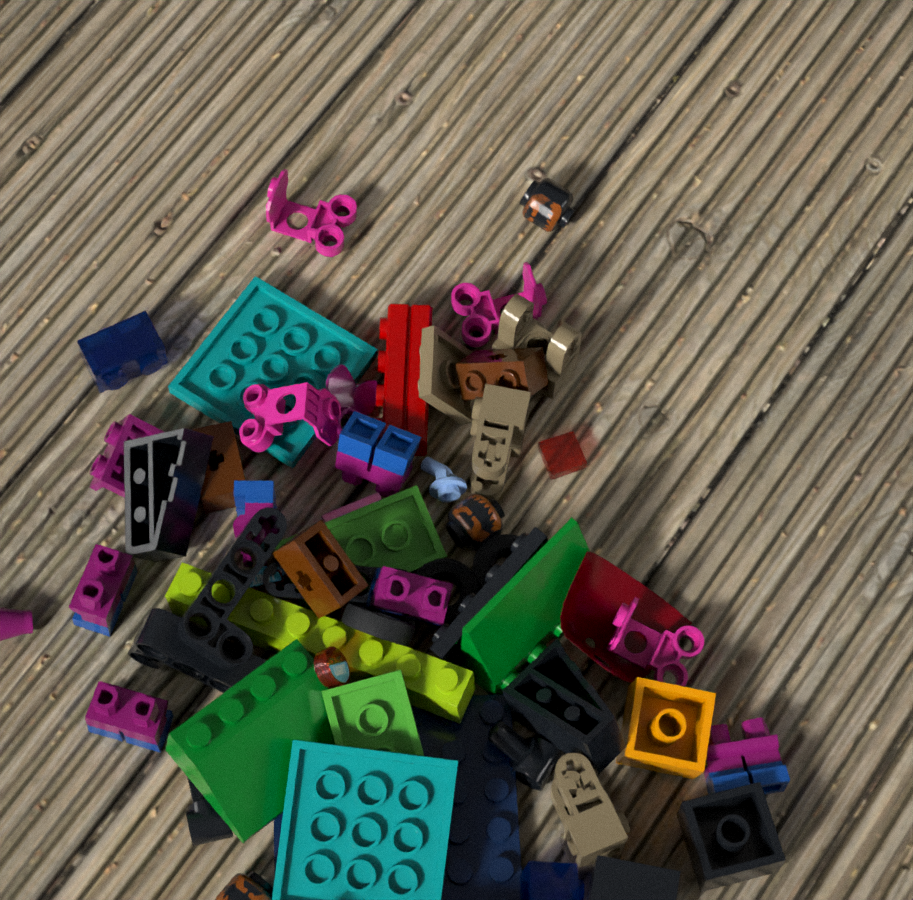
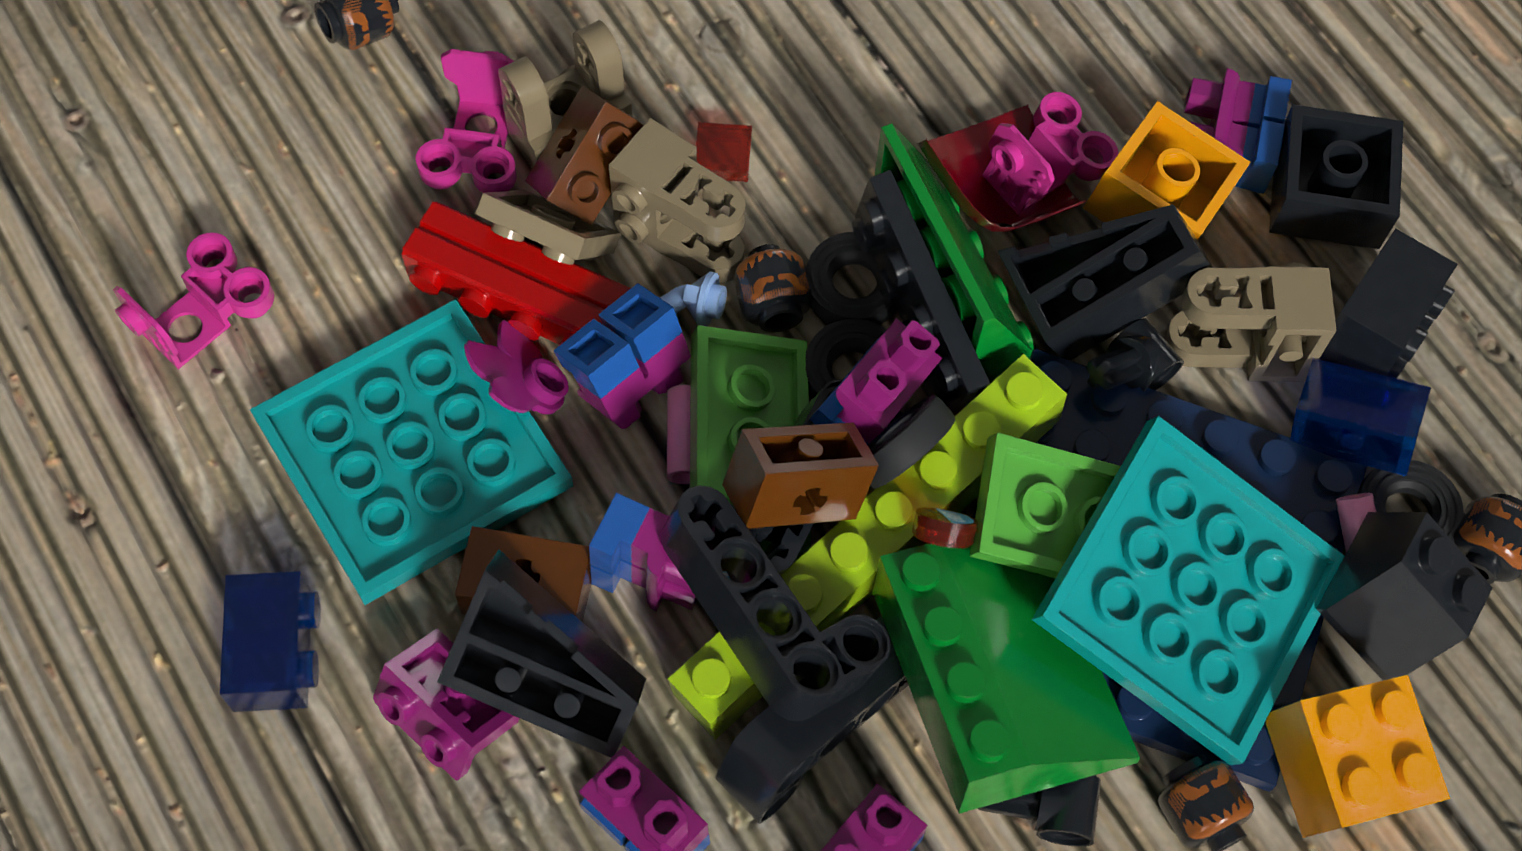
camera: 65 degrees left, 0 degrees up
(268, 405) = (499, 465): dark pink piece -> none

